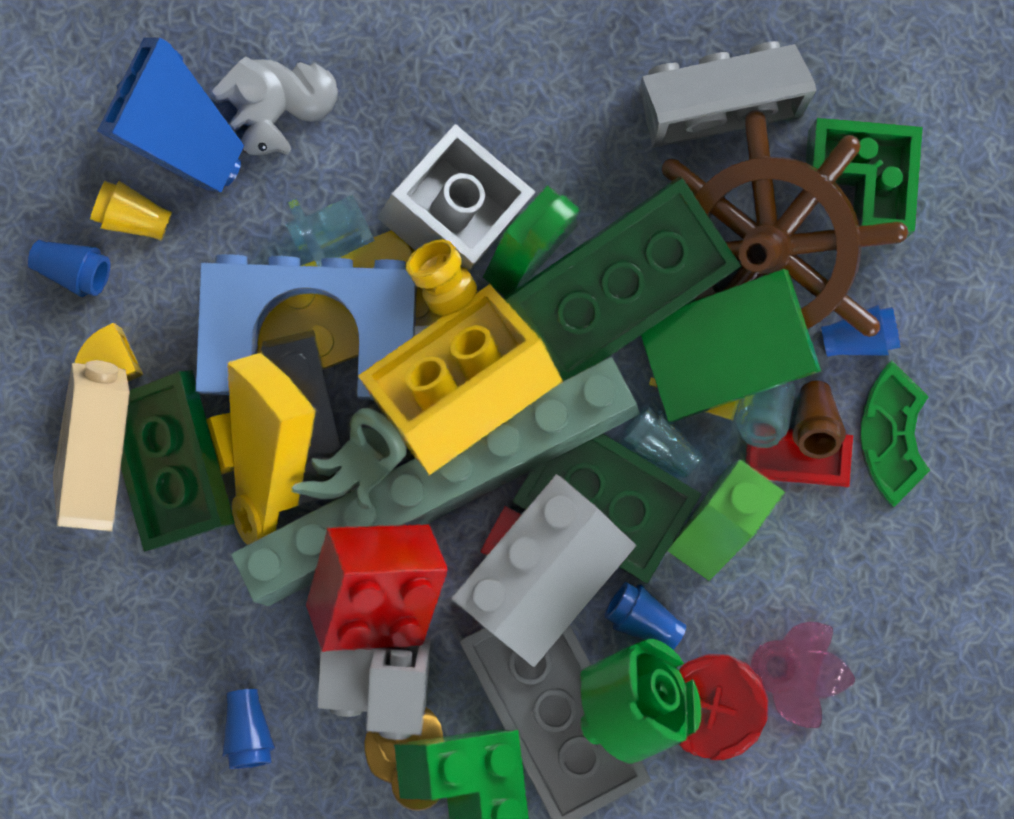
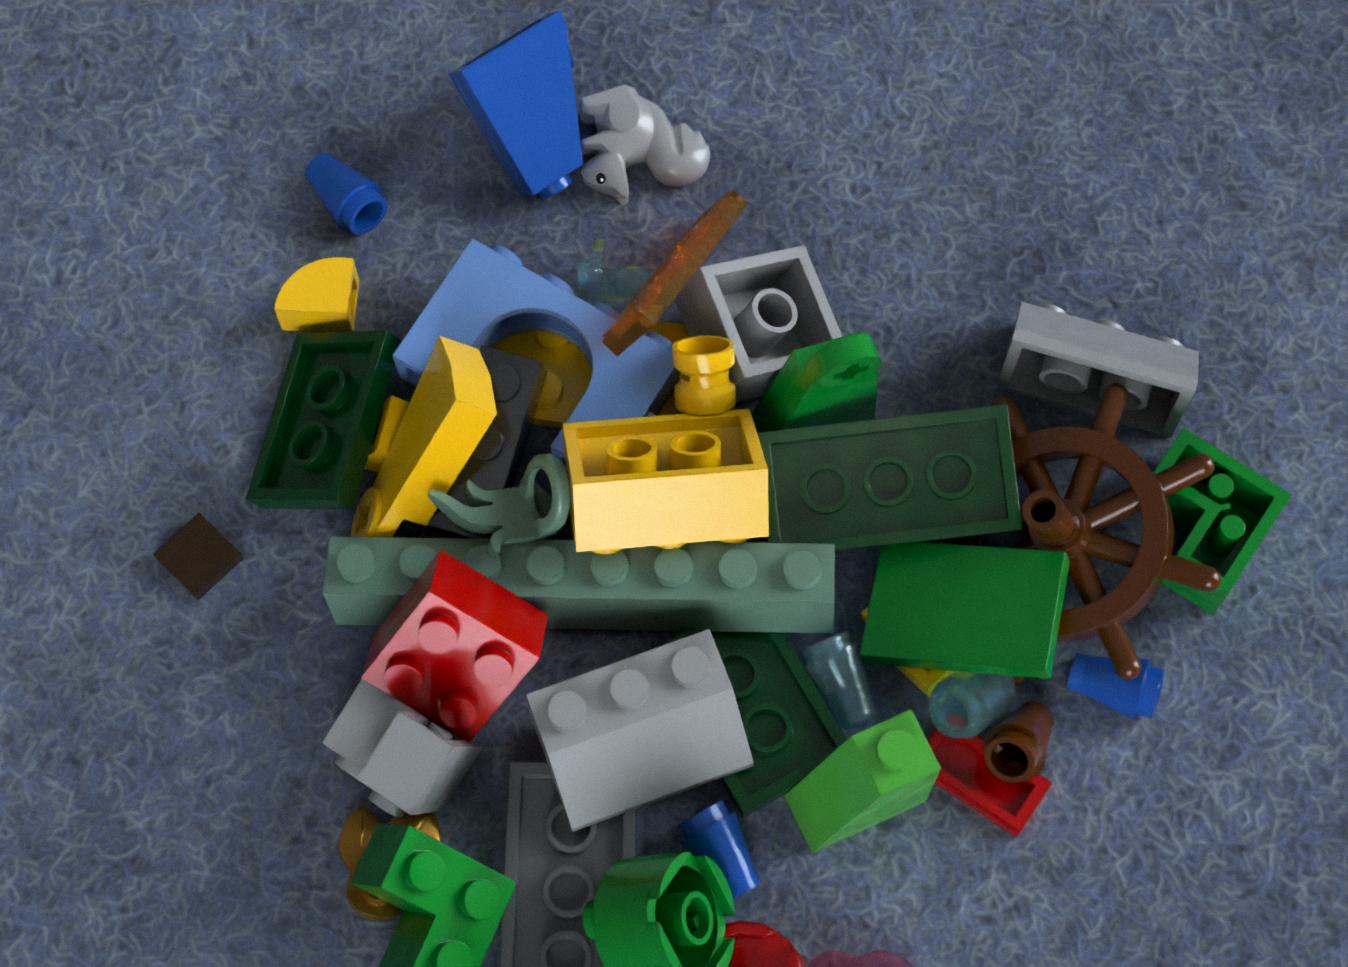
camera: 30 degrees right, 15 degrees down
(90, 446) = (257, 353): tan slope -> none
(129, 212) = (432, 171): yellow cone -> none
(134, 613) = (198, 556): none -> dark brown tile
(246, 731) = (235, 735): blue cone -> none
(370, 203) = (673, 272): none -> clear orange tile
(889, 434) = (1091, 807): green tile -> none

